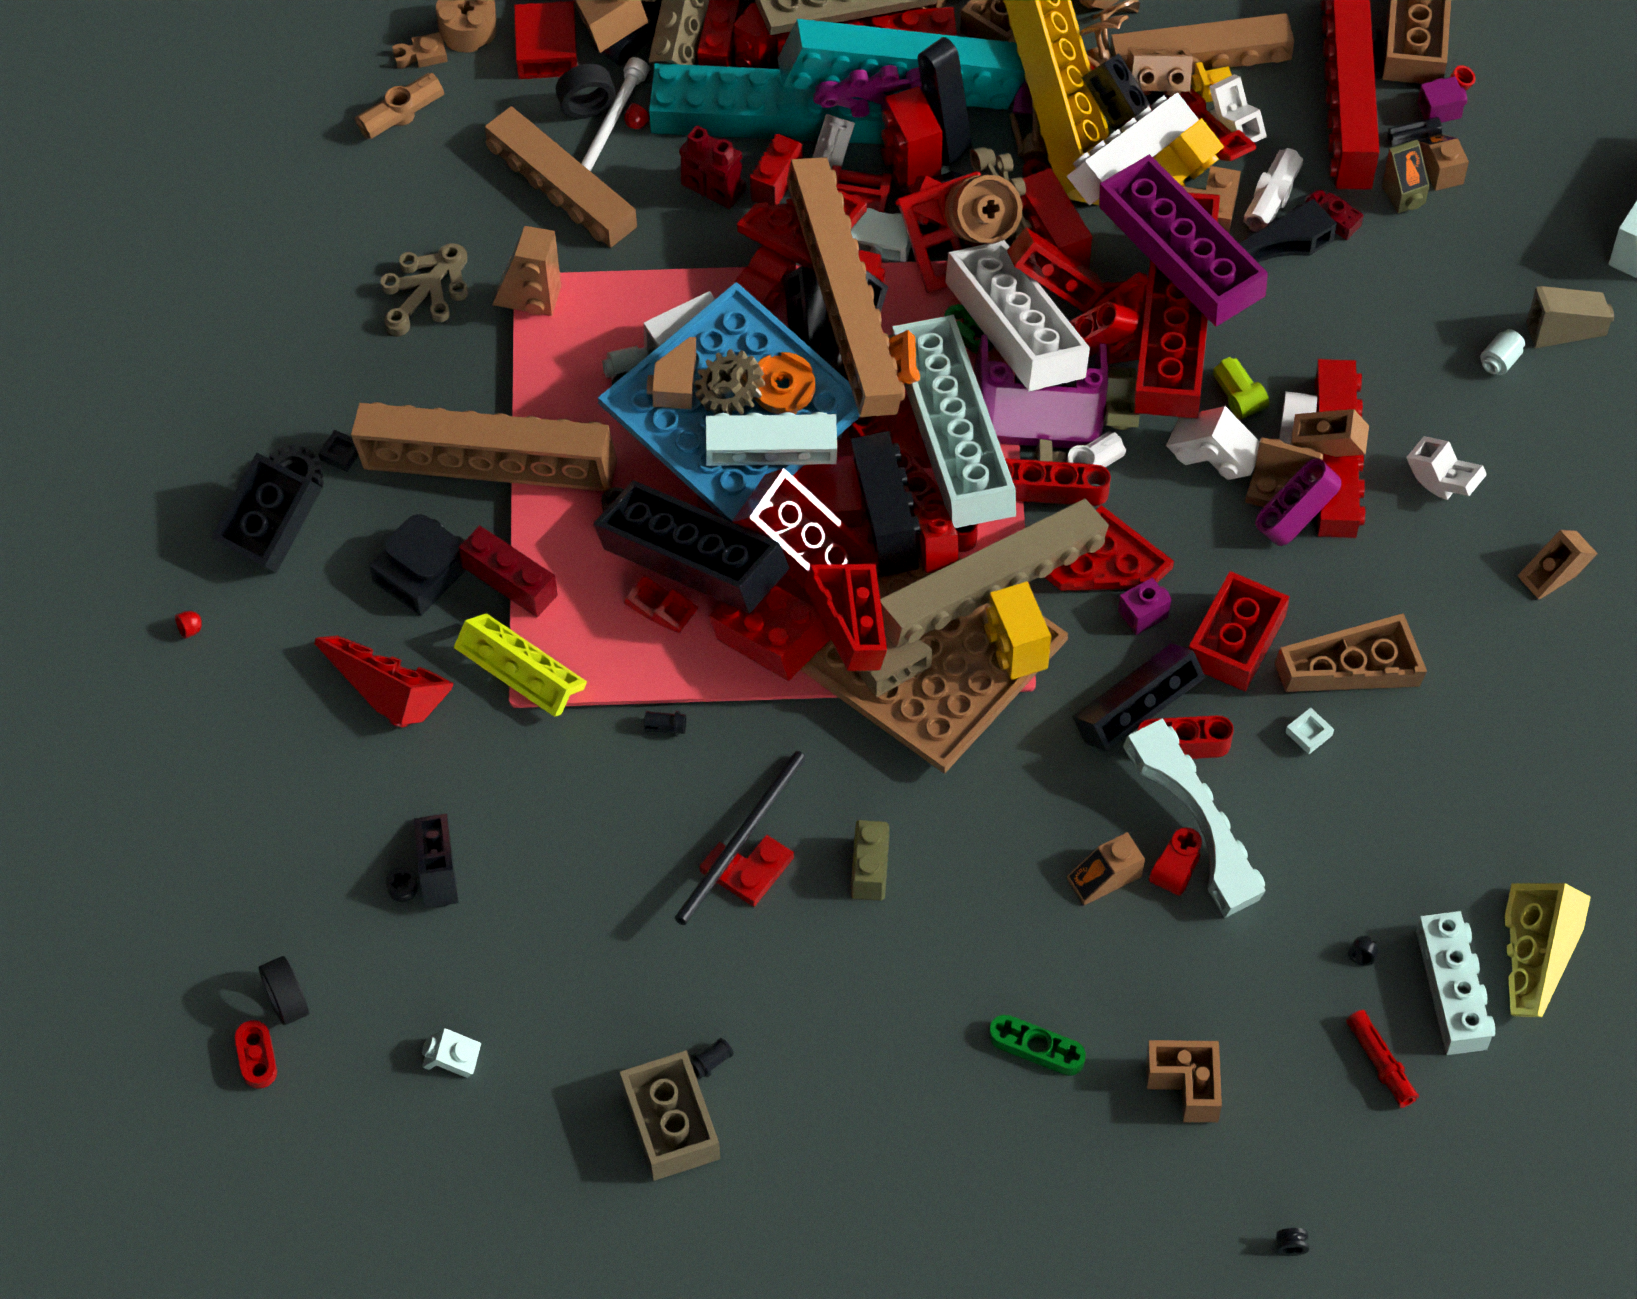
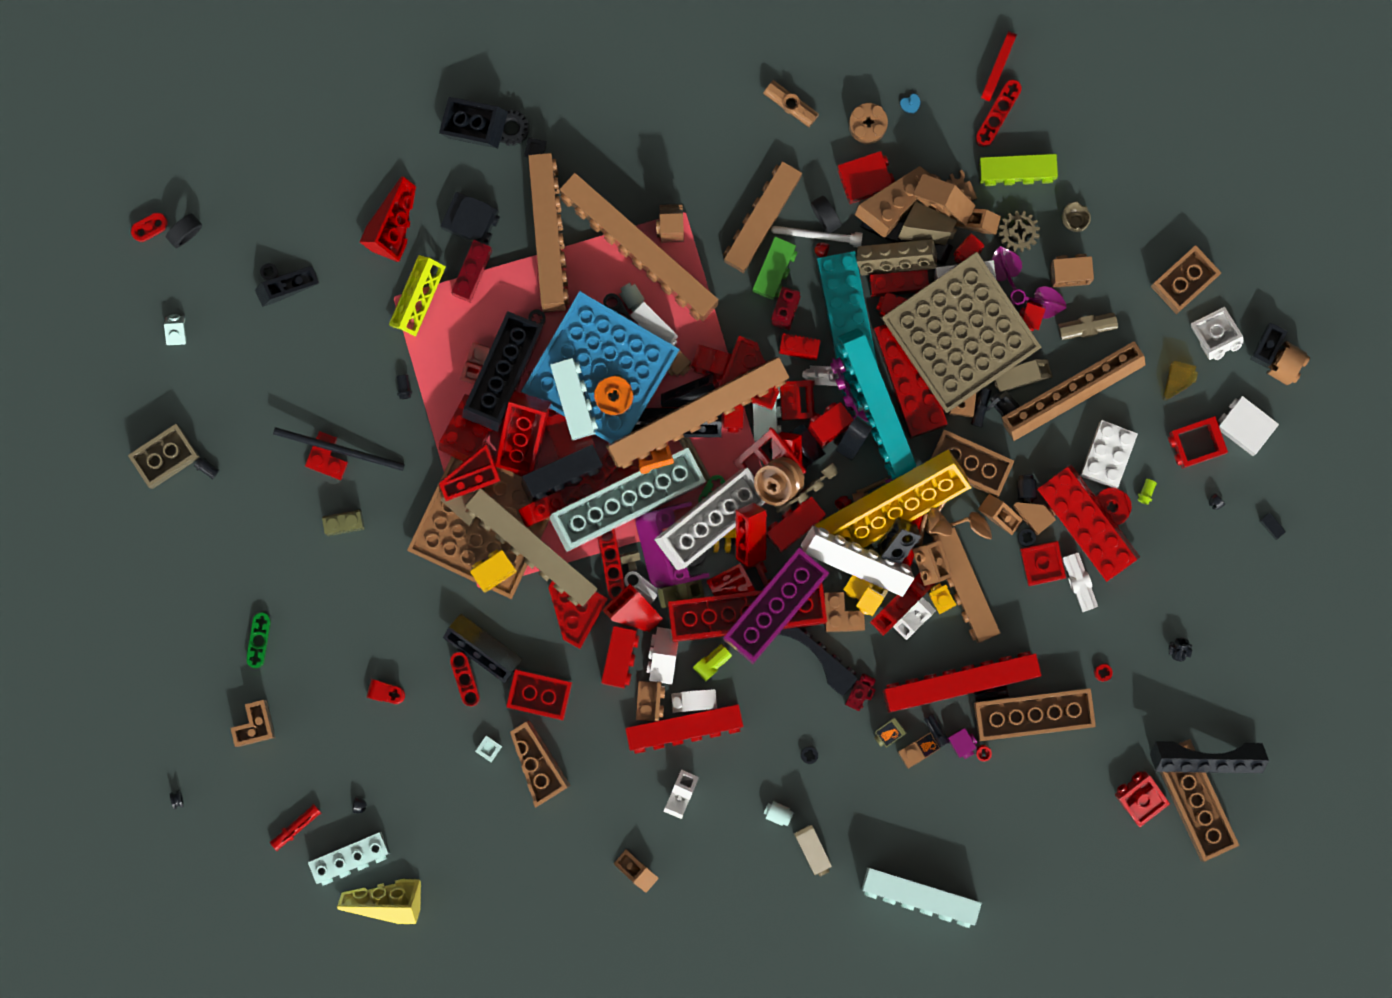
camera: 75 degrees right, 25 degrees up
(188, 623) = (400, 101): red hinge -> none
(424, 50) = (842, 105): medium nougat plate -> none
(425, 284) = (665, 162): dark tan plant -> none
(554, 326) = (638, 247): none -> medium nougat brick
(644, 179) = (775, 268): none -> bright green brick
(674, 377) = (598, 332): medium nougat slope -> none
(729, 383) = (602, 357): dark tan gear -> none
(1105, 325) = (716, 568): red beam -> none
(1107, 869) = (371, 654): medium nougat slope -> none
(1129, 460) = (632, 610): none -> red slope
(1144, 605) = (547, 639): magenta brick -> none
(1159, 758) = (437, 668): light aqua arch -> none
(1203, 502) = (620, 657): none -> red brick
(1273, 189) = (865, 652): white piece -> none
(1298, 502) = (632, 712): magenta beam -> none
(1331, 432) = (678, 722): medium nougat slope -> none
(1411, 292) = (804, 758): none -> black bush

